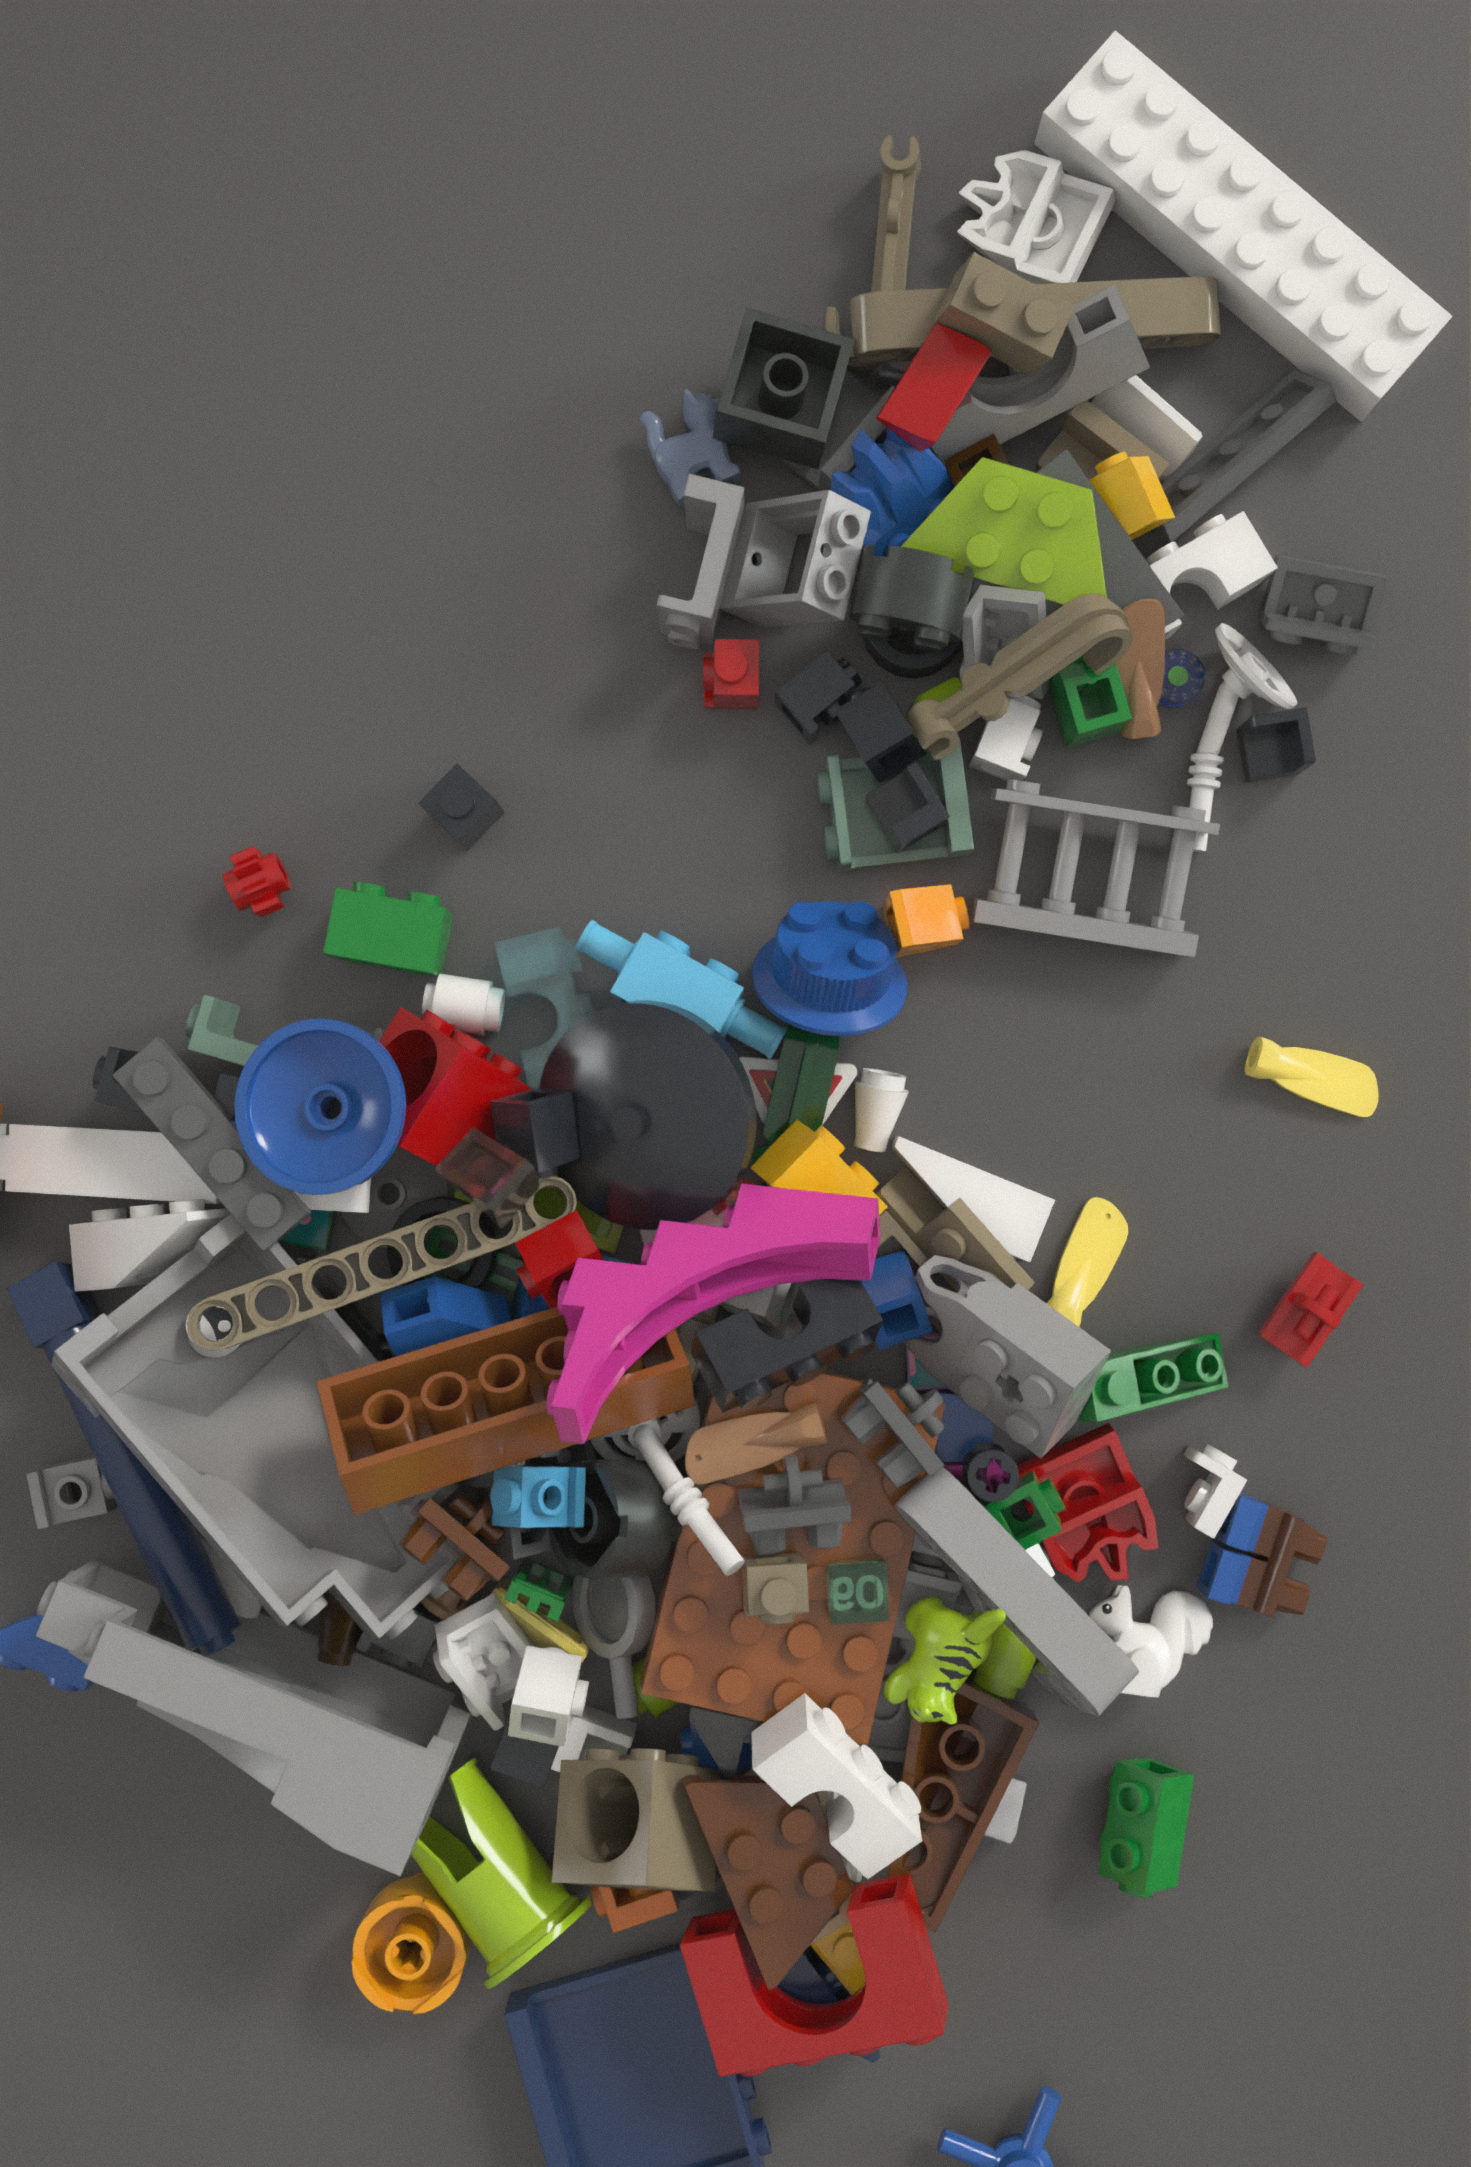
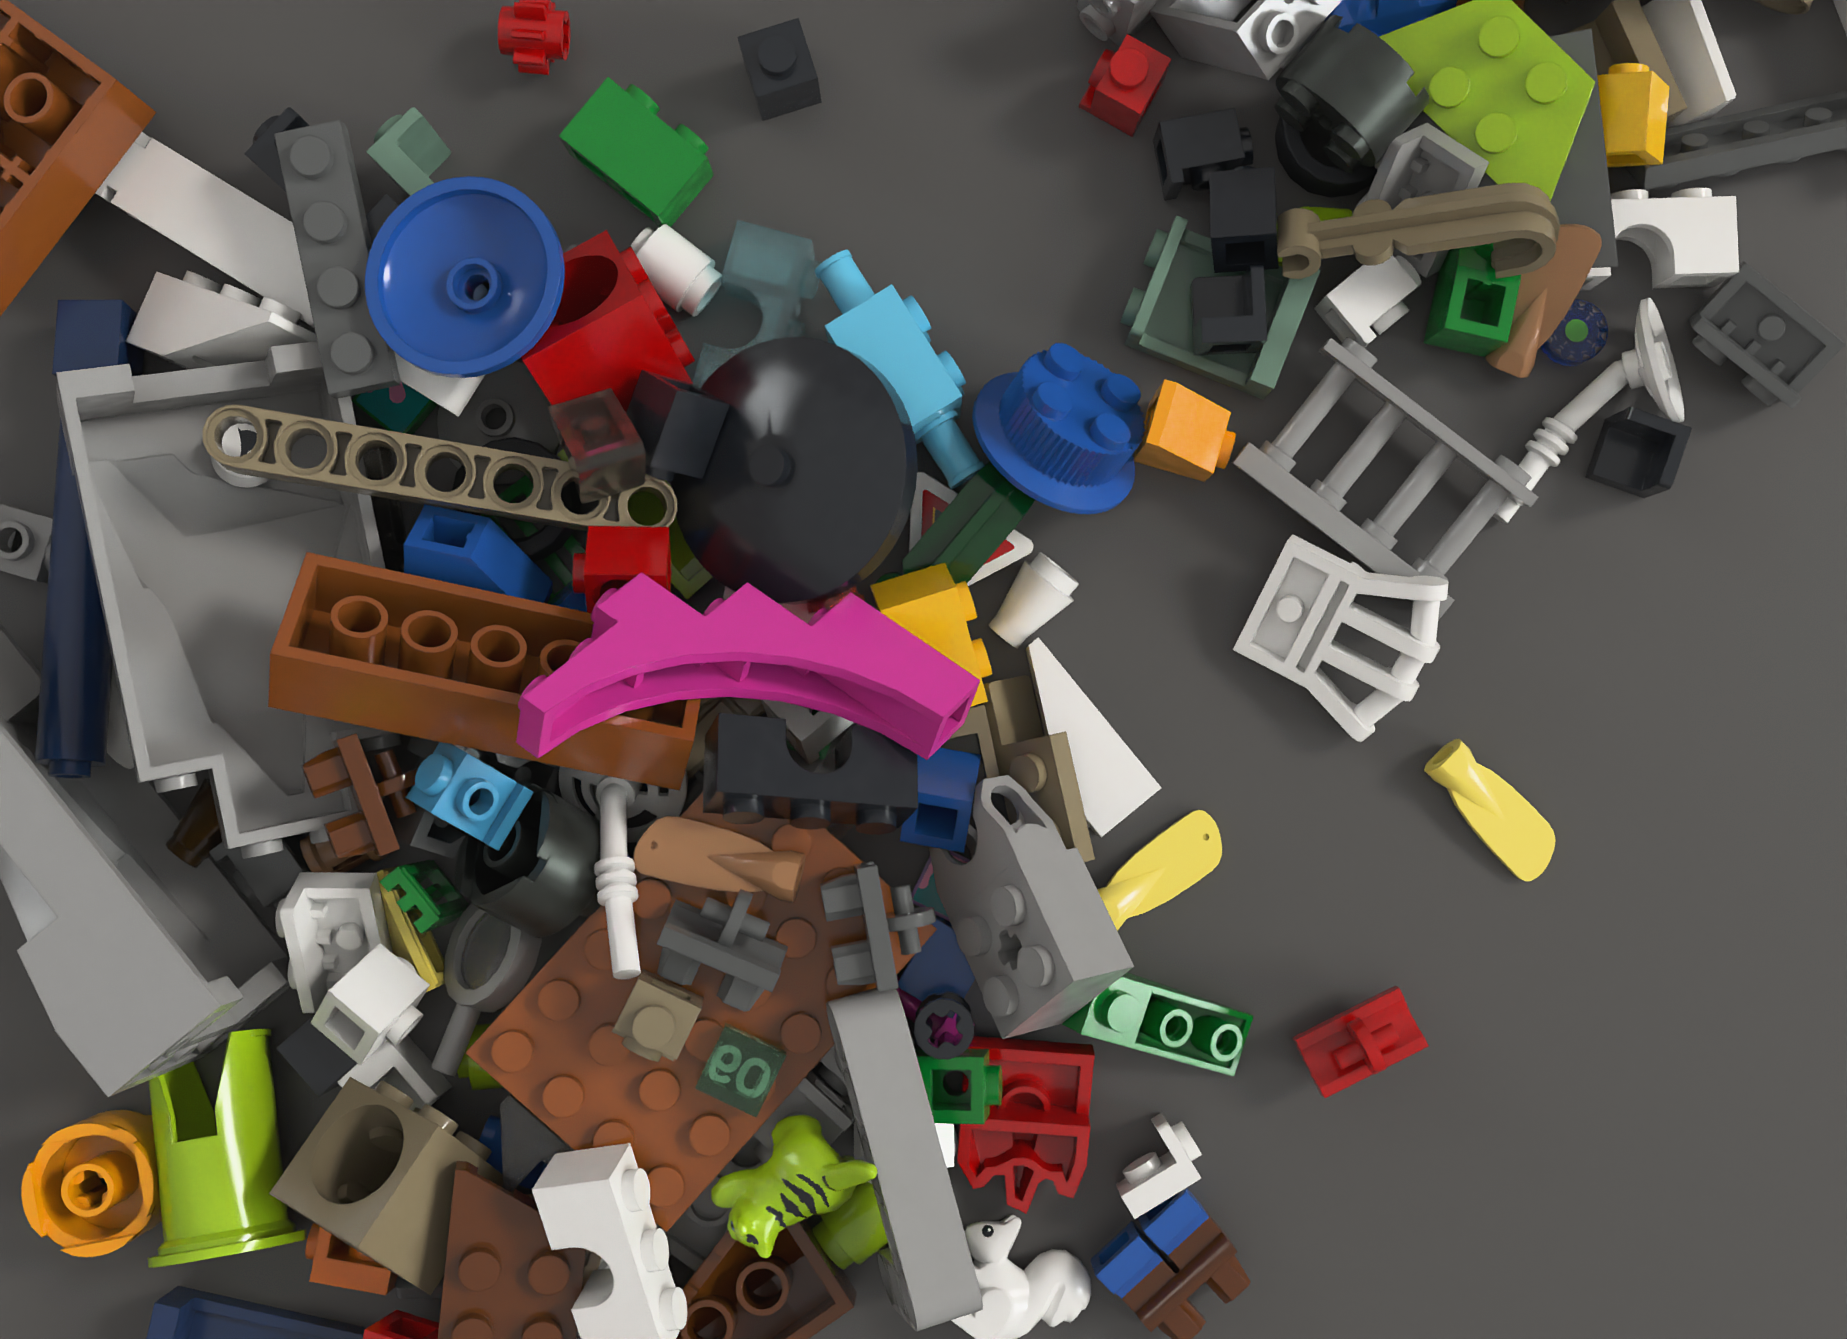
camera: 25 degrees right, 0 degrees up
(1088, 1005) = (1303, 611): none -> white plate

